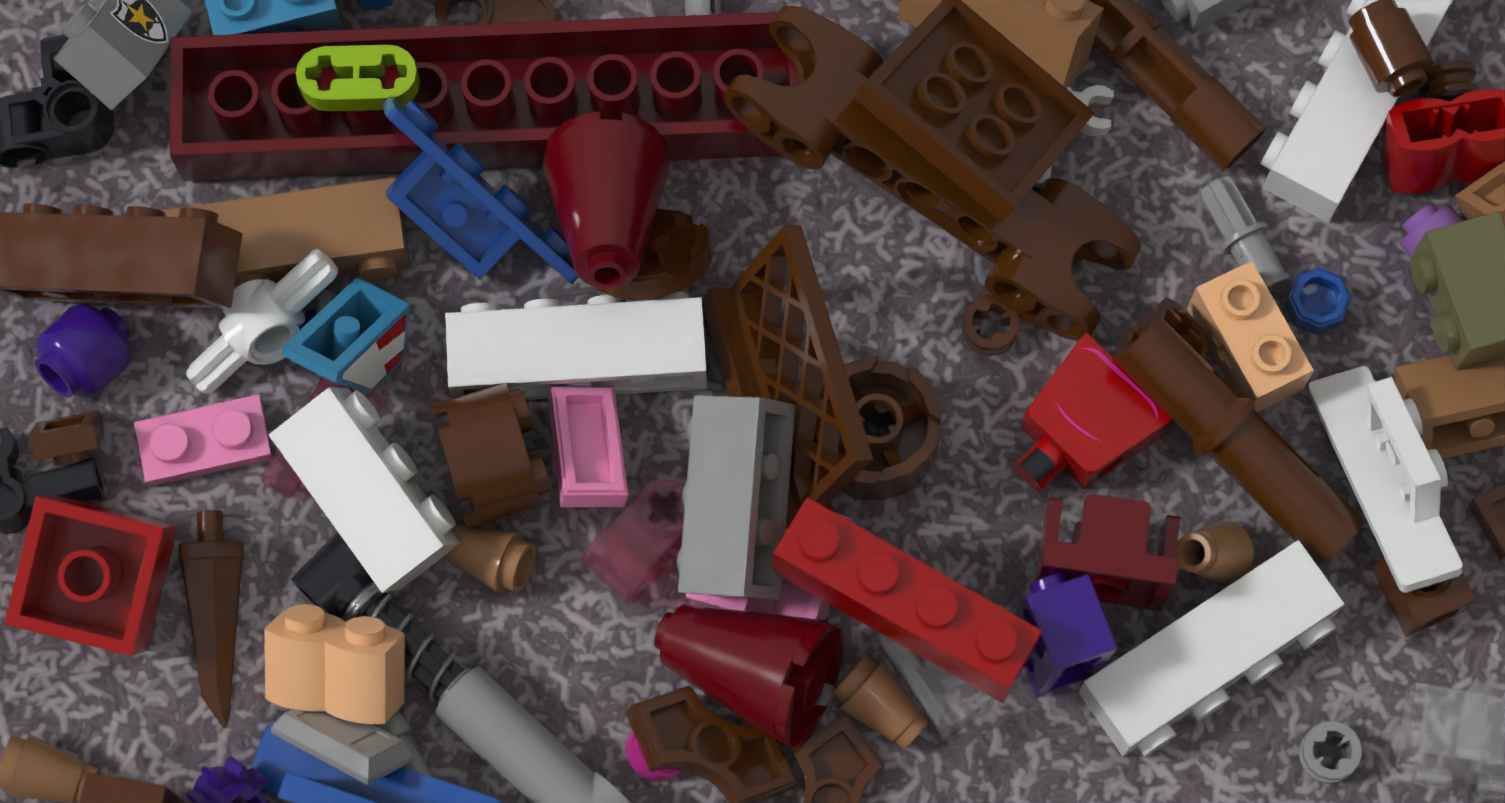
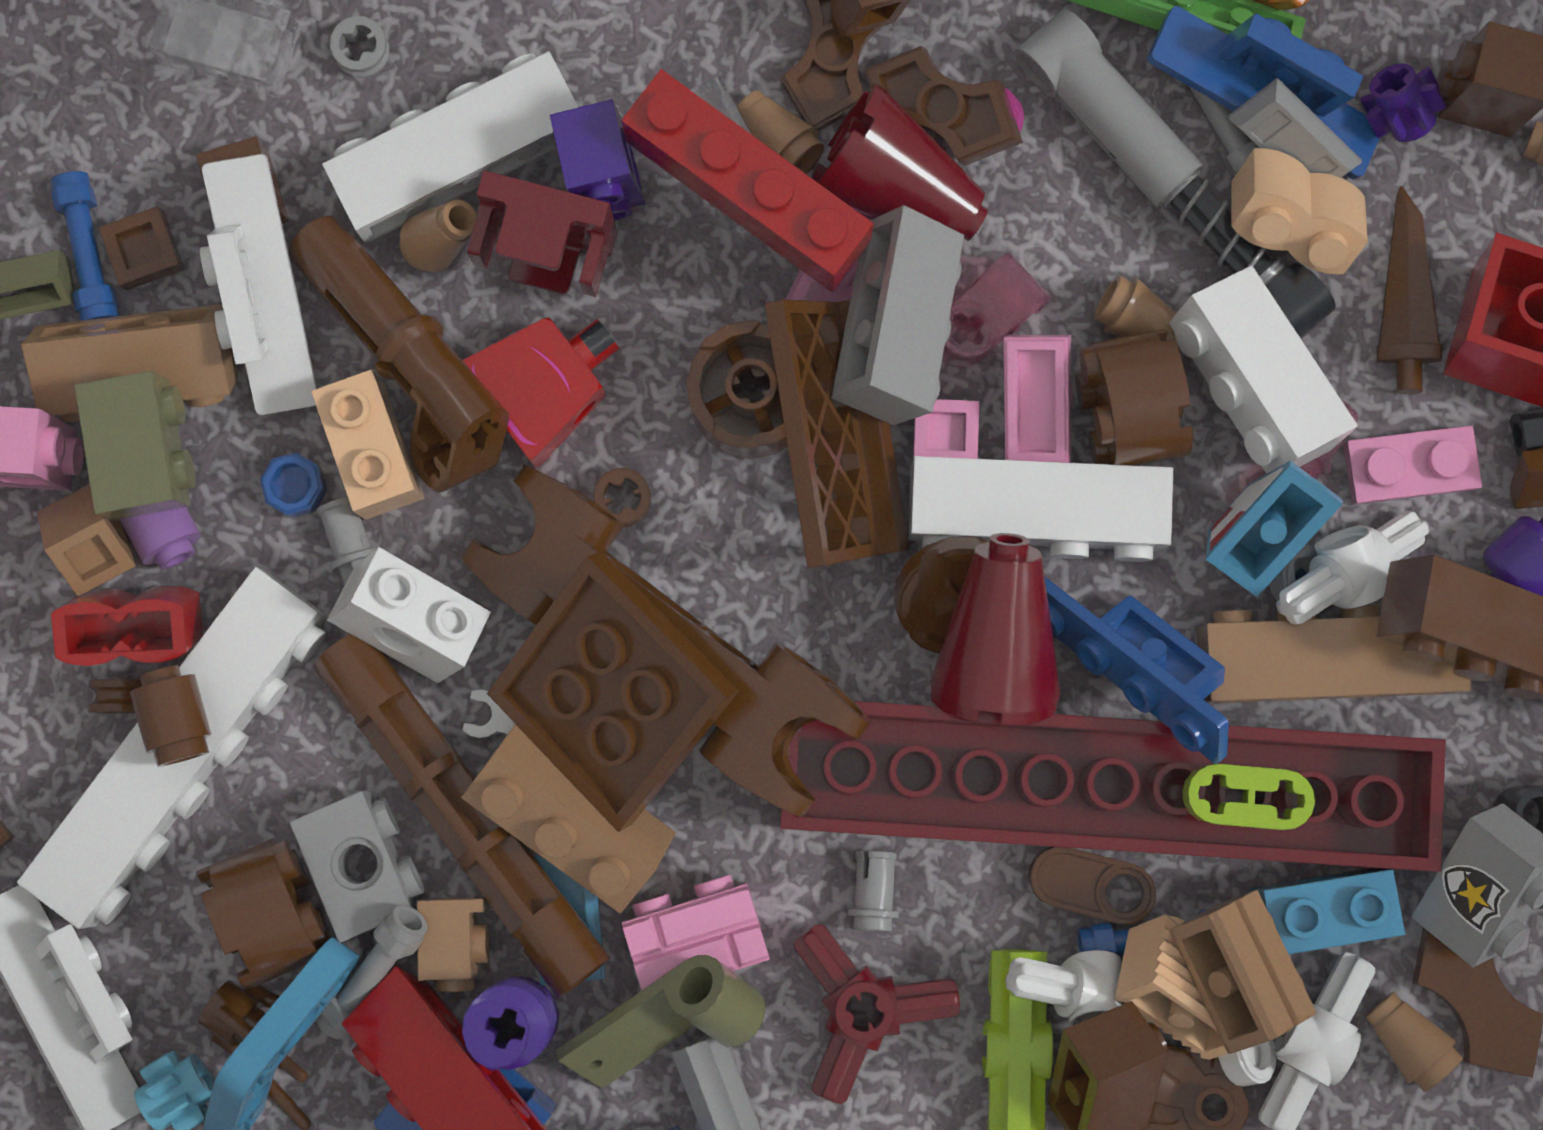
camera: 175 degrees left, 10 degrees up
(667, 416) = (948, 430): none -> bright pink plate
(1181, 172) = (409, 615): none -> white brick

